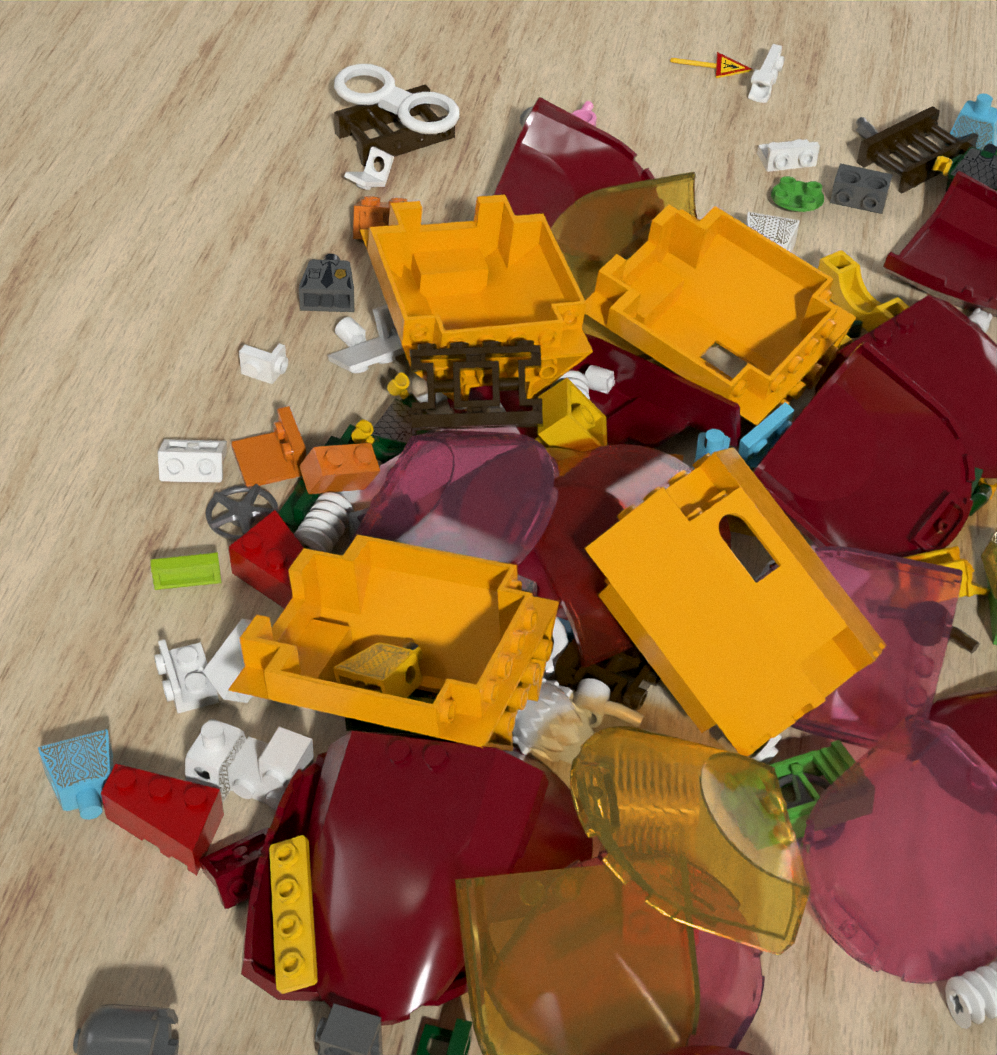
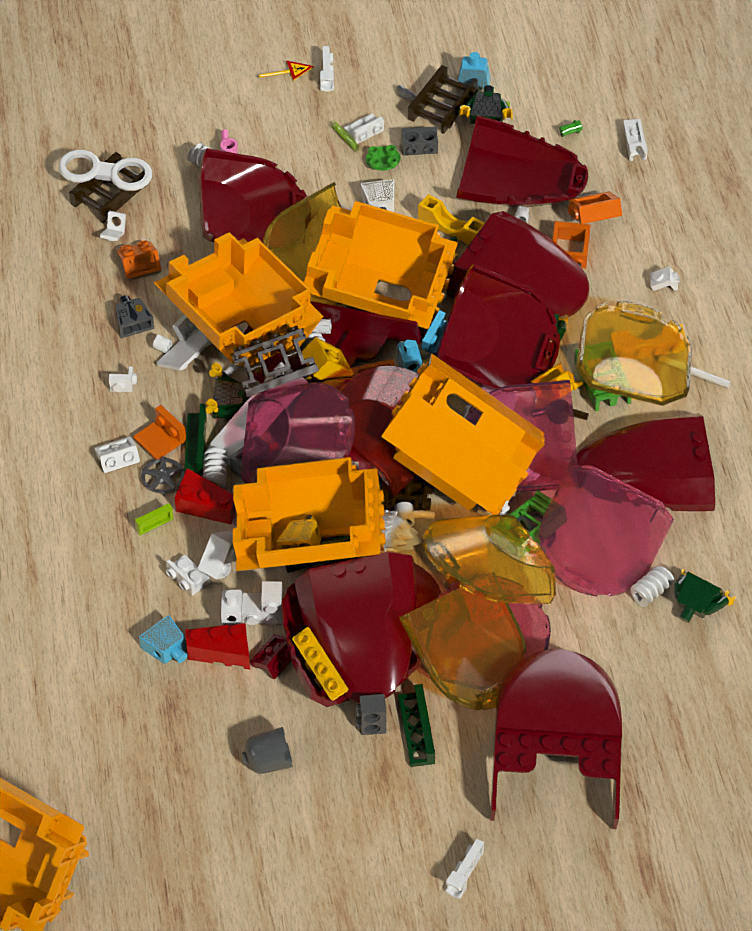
camera: 20 degrees left, 5 degrees up
(339, 468) = (212, 432): orange brick -> none
(761, 163) = (341, 132): none -> lime piece

